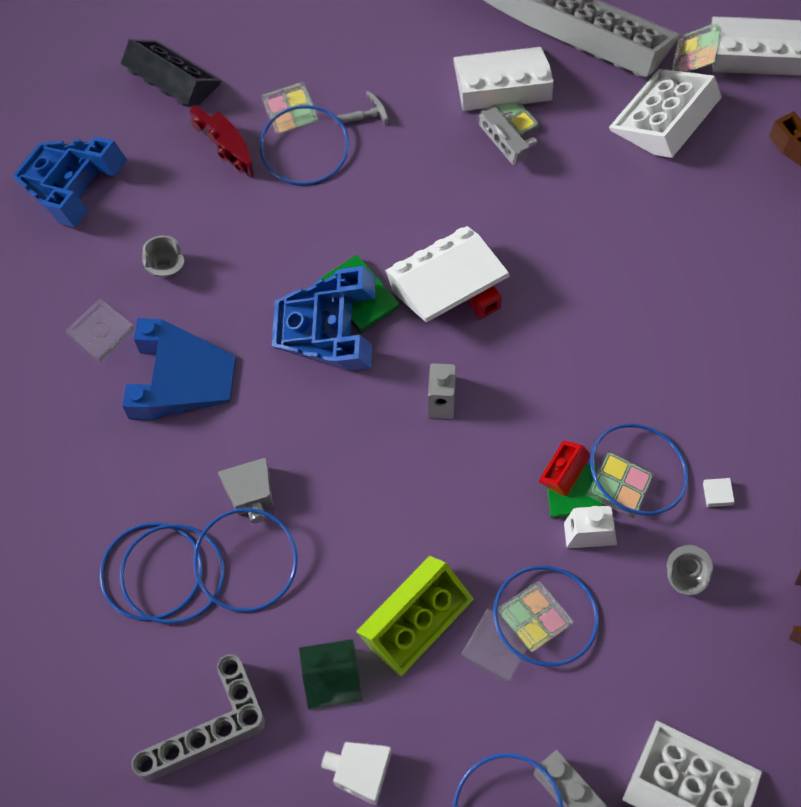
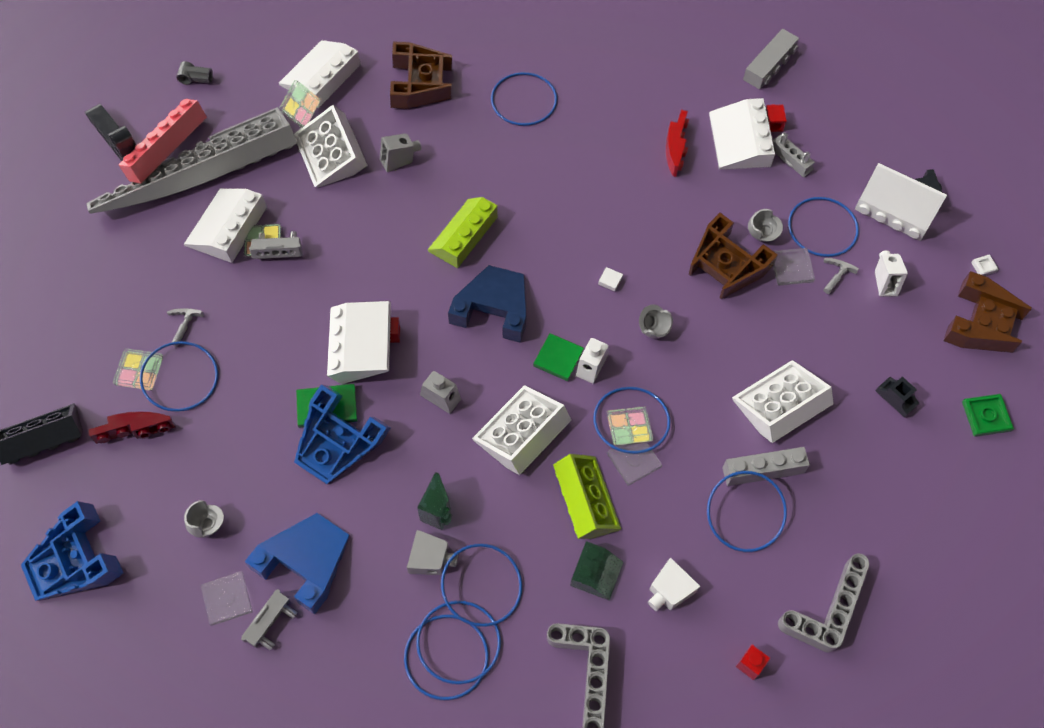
camera: 65 degrees left, 0 degrees up
(96, 376) = (265, 619): none -> light grey piece
(307, 458) = (434, 505): none -> clear green slope
(454, 501) = (522, 429): none -> white slope
(565, 467) = (541, 351): red slope -> none
(606, 379) = (496, 293): none -> dark blue wedge
(617, 503) = (566, 337): blue piece -> none
(622, 481) = (573, 327): tile -> none
(664, 302) = (464, 231): none -> lime slope
(713, 174) = (397, 151): none -> light grey torso

